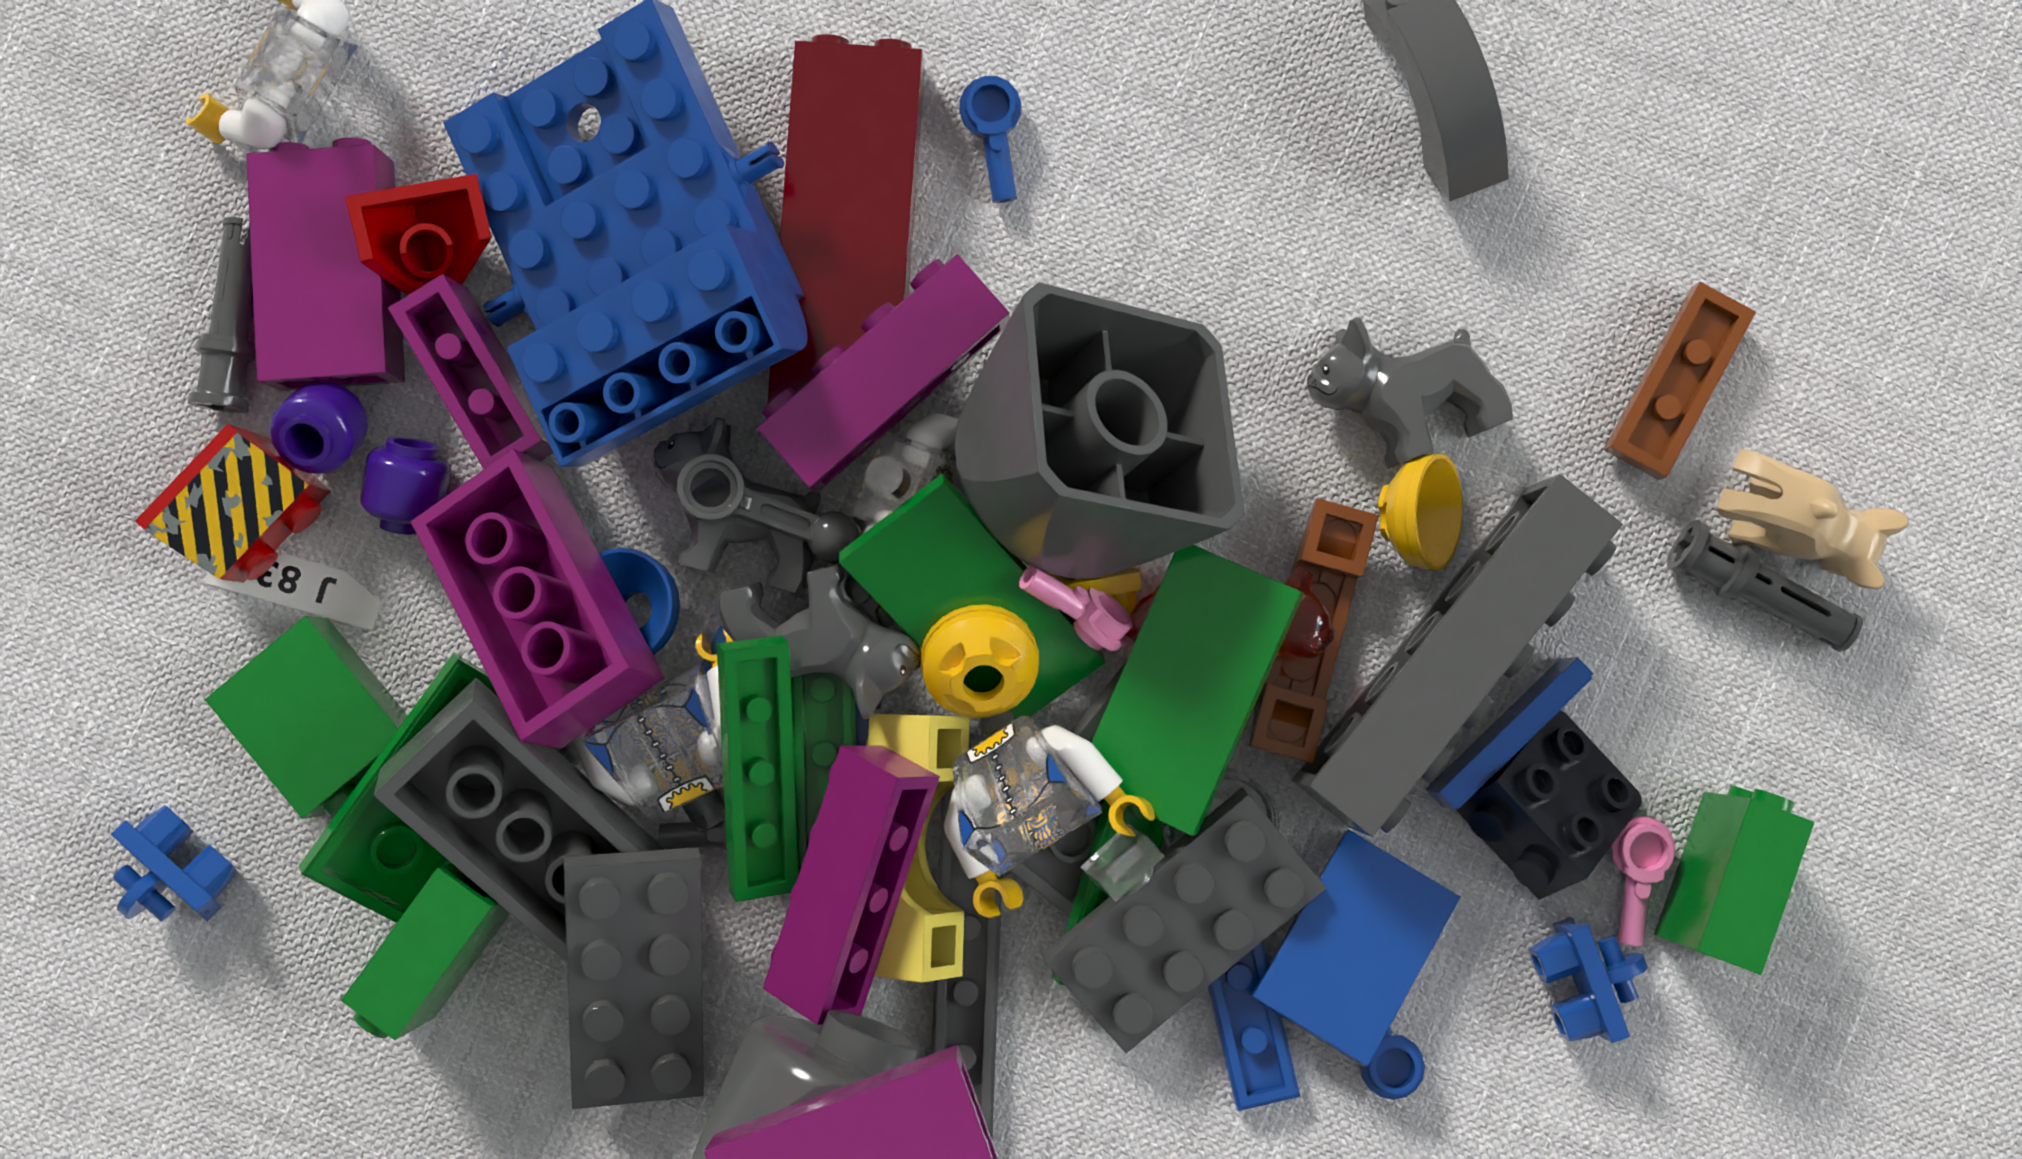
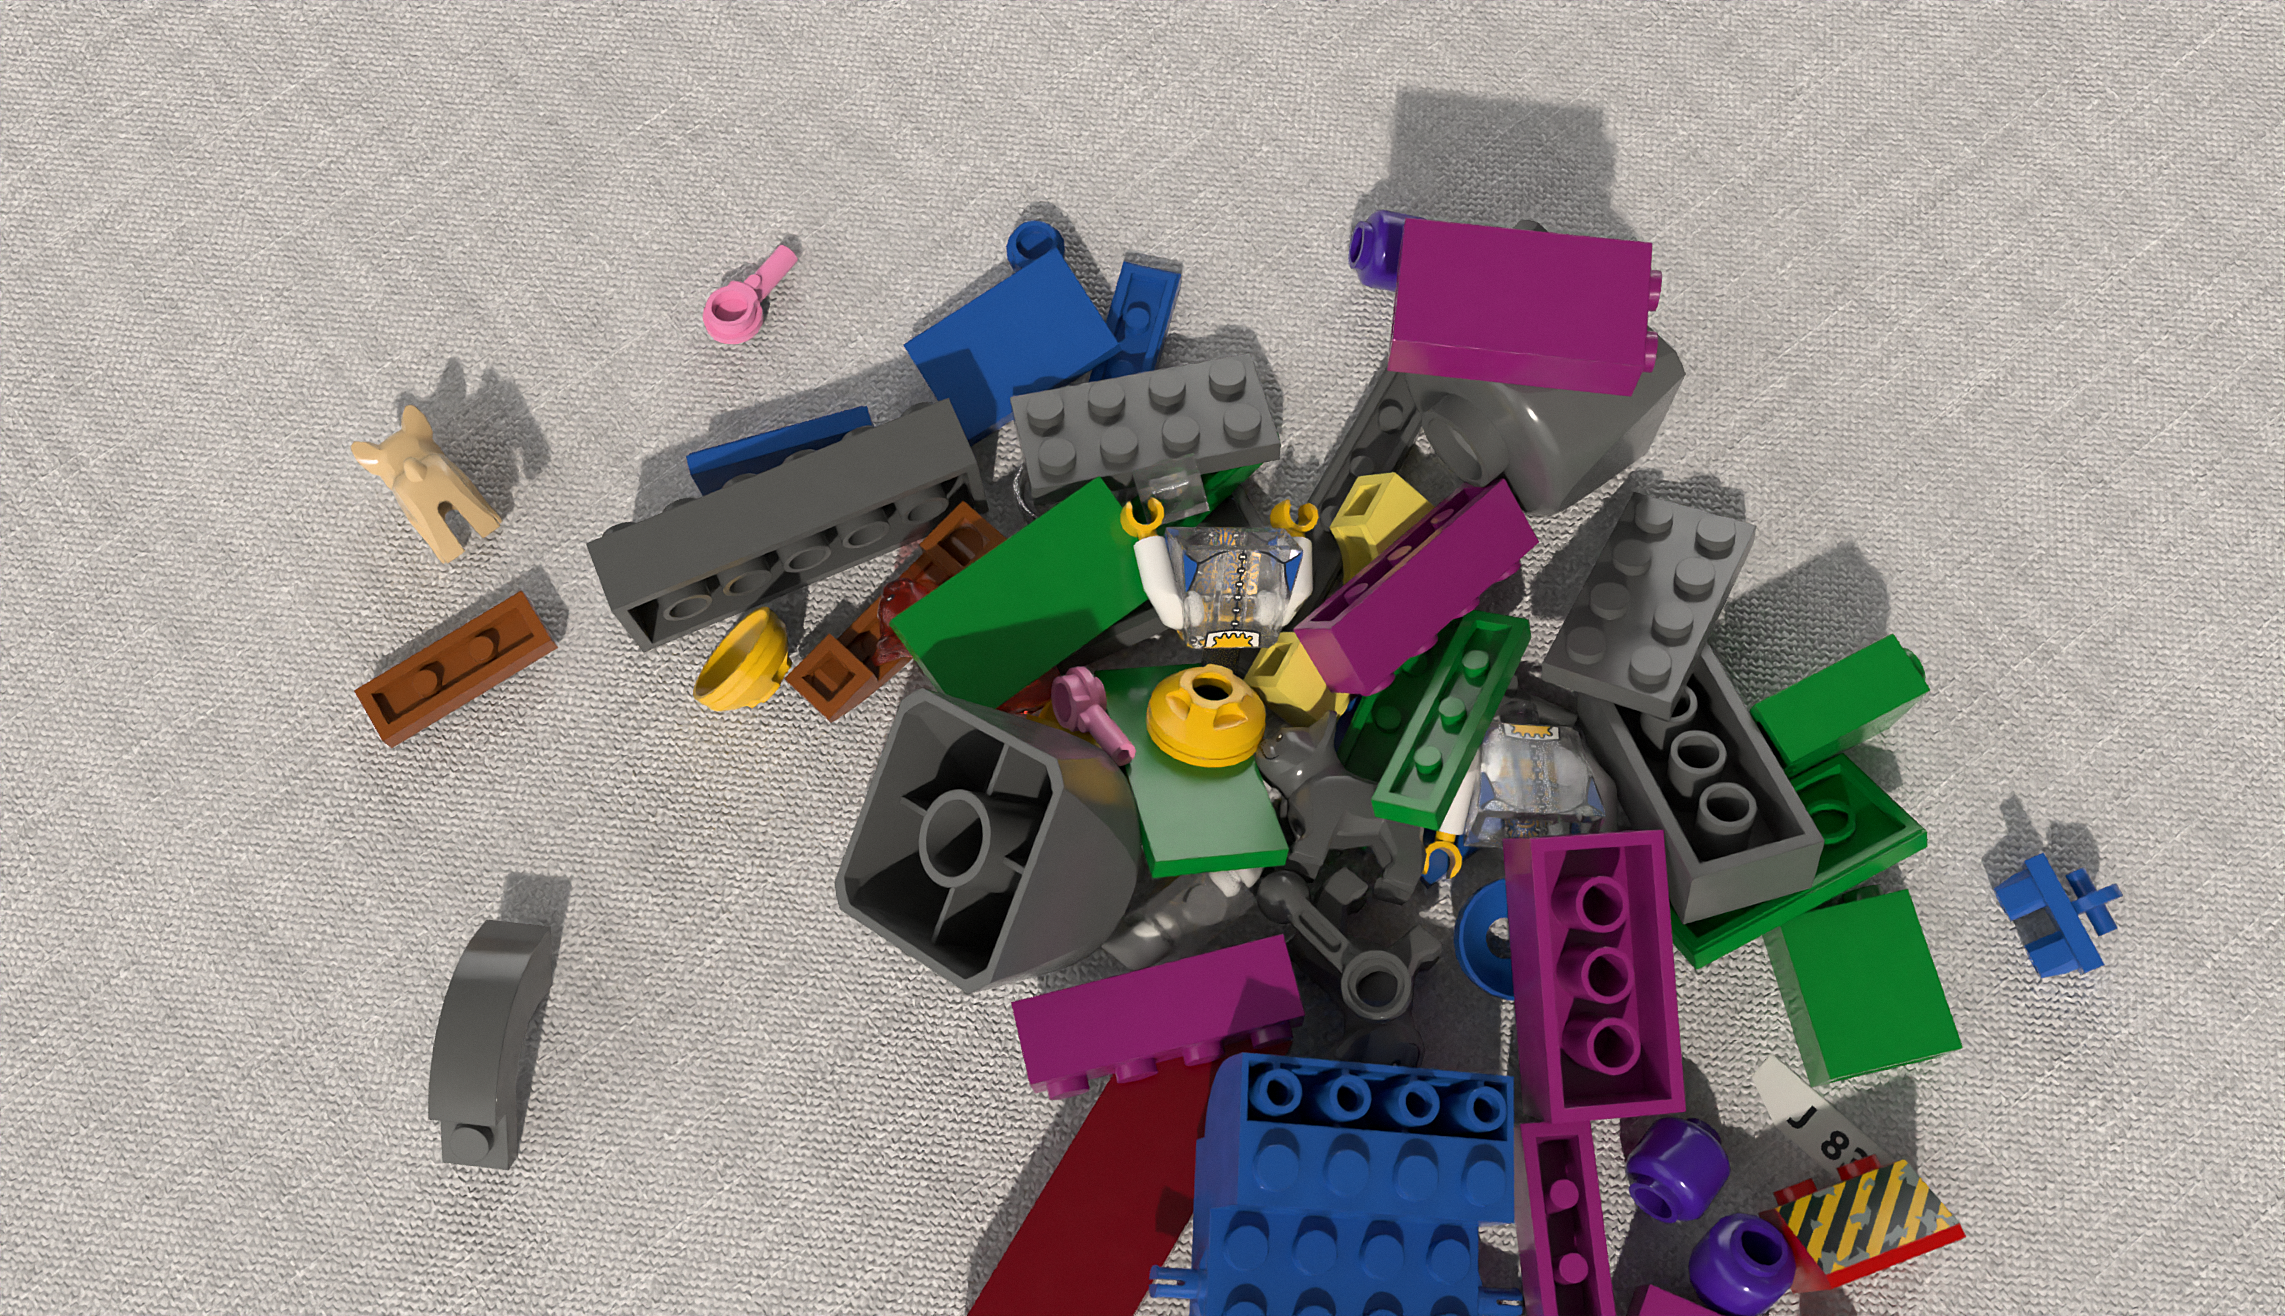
camera: 150 degrees left, 15 degrees down
(991, 111) = (920, 1249): blue plate -> none
(1403, 391) = (692, 775): dark grey animal -> none
(1553, 808) = (783, 372): black bracket -> none
(1576, 954) = (832, 238): blue hips -> none
(1735, 876) = (676, 248): green brick -> none
(1739, 574) = (513, 485): dark grey pin -> none

